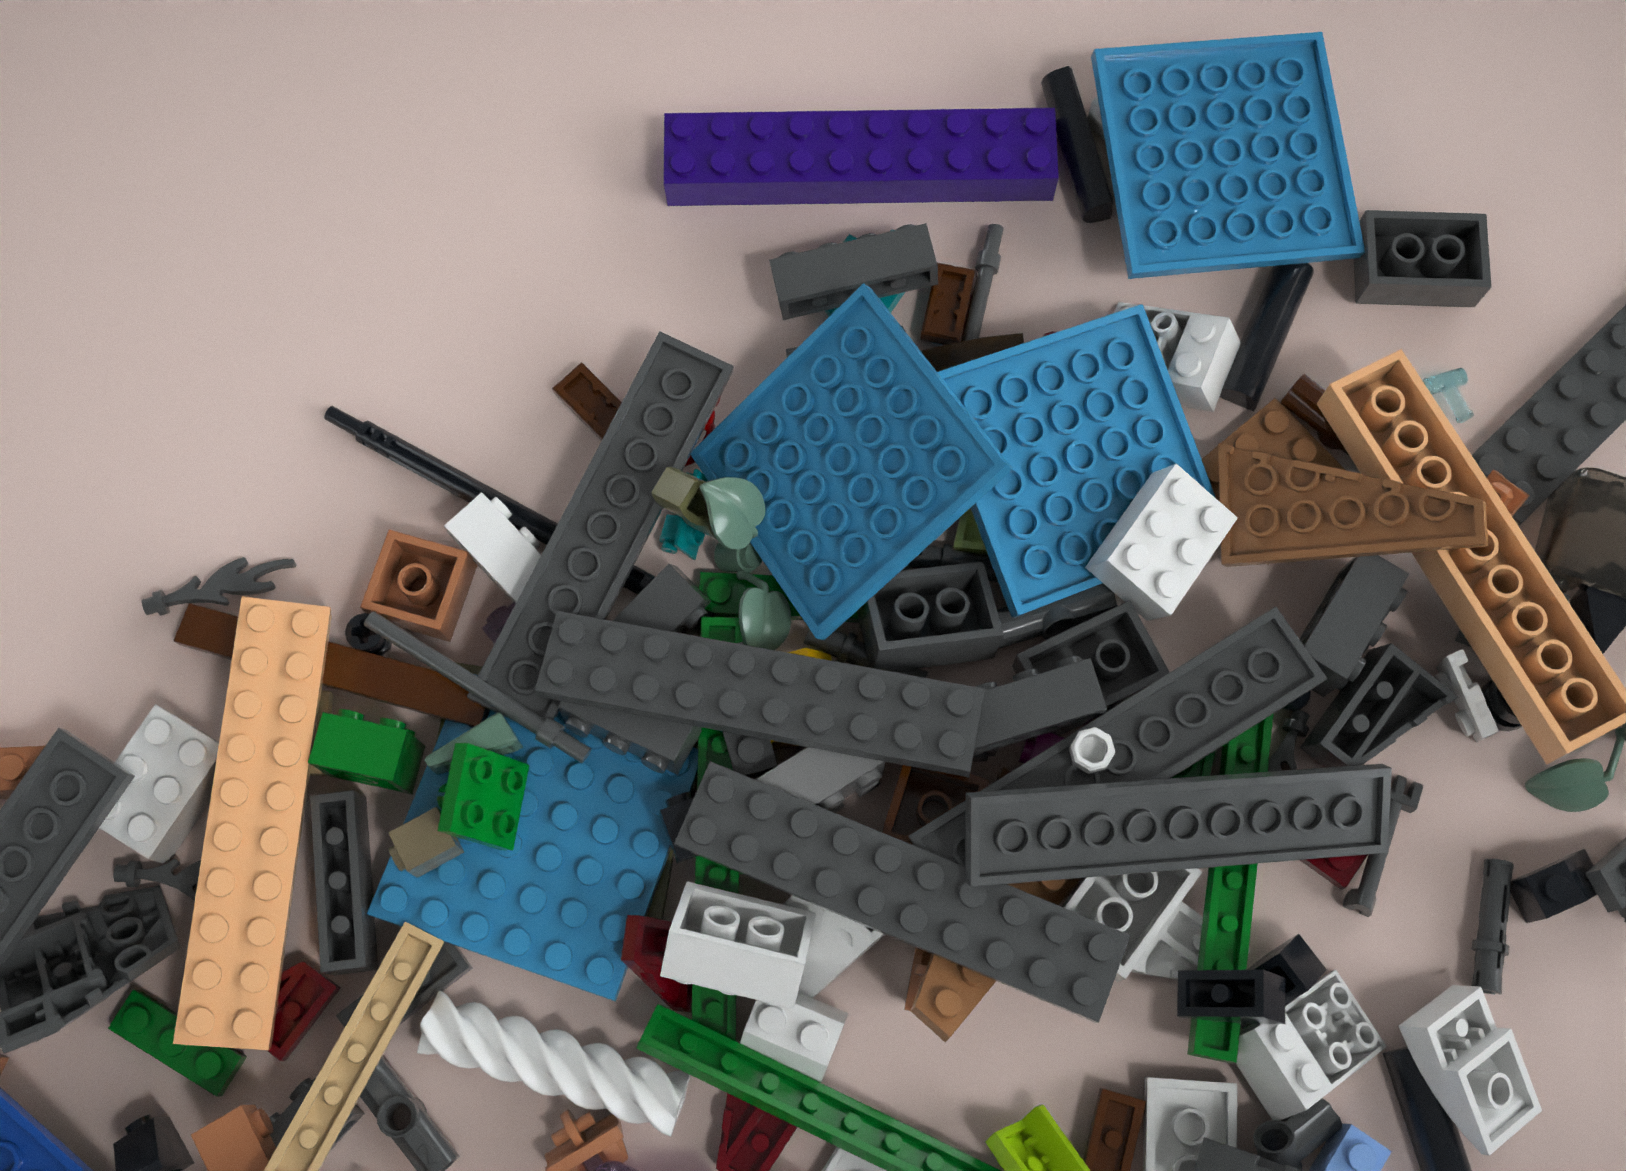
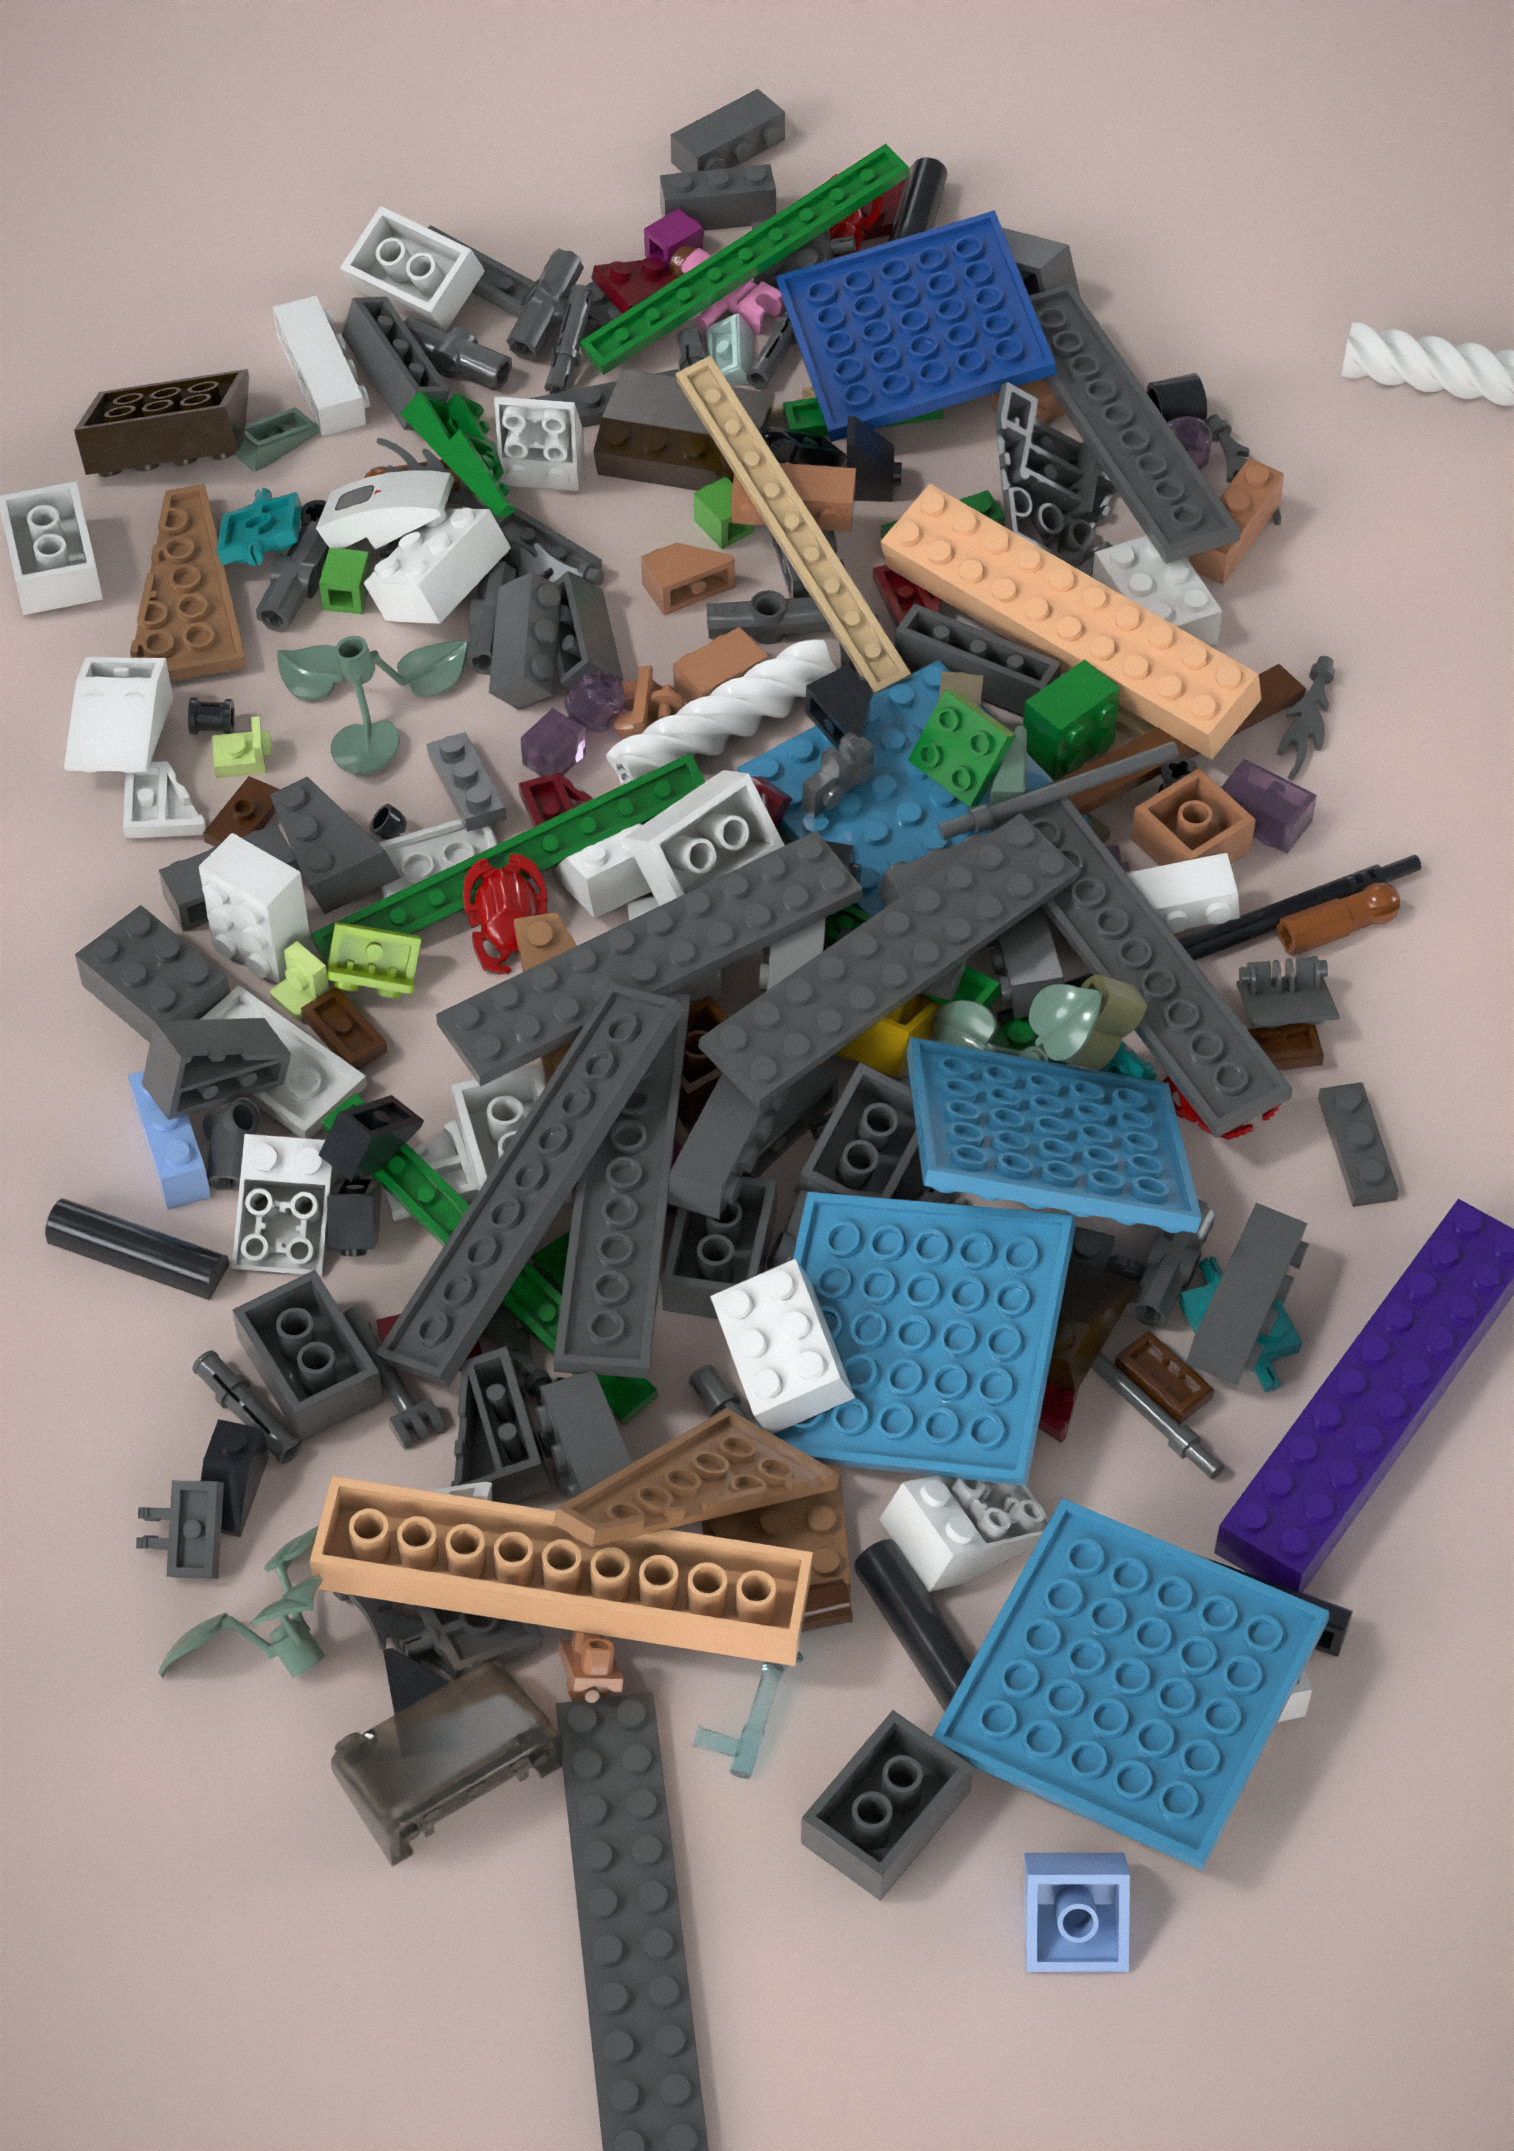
camera: 125 degrees right, 20 degrees down
(348, 551) = (1277, 804): none -> clear purple brick
(434, 435) = (1338, 918): none -> dark orange piece
(497, 1111) = (716, 663): none -> nougat brick
(501, 935) = (839, 704): none -> black slope
(543, 418) = (1289, 998): none -> dark grey hinge
(592, 886) = (838, 774): none -> dark grey hinge
(640, 302) = (1357, 1144): none -> dark grey plate
(899, 1090) = (500, 901): none -> red shield
(1092, 750) = (645, 1143): white tile -> none
(1206, 588) = (714, 1392): none -> dark grey axle
(1381, 116) = (1076, 1912): none -> light blue slope
(1429, 905) = (308, 1355): none -> dark grey brick
(1472, 1066) = (162, 1293): white slope -> none

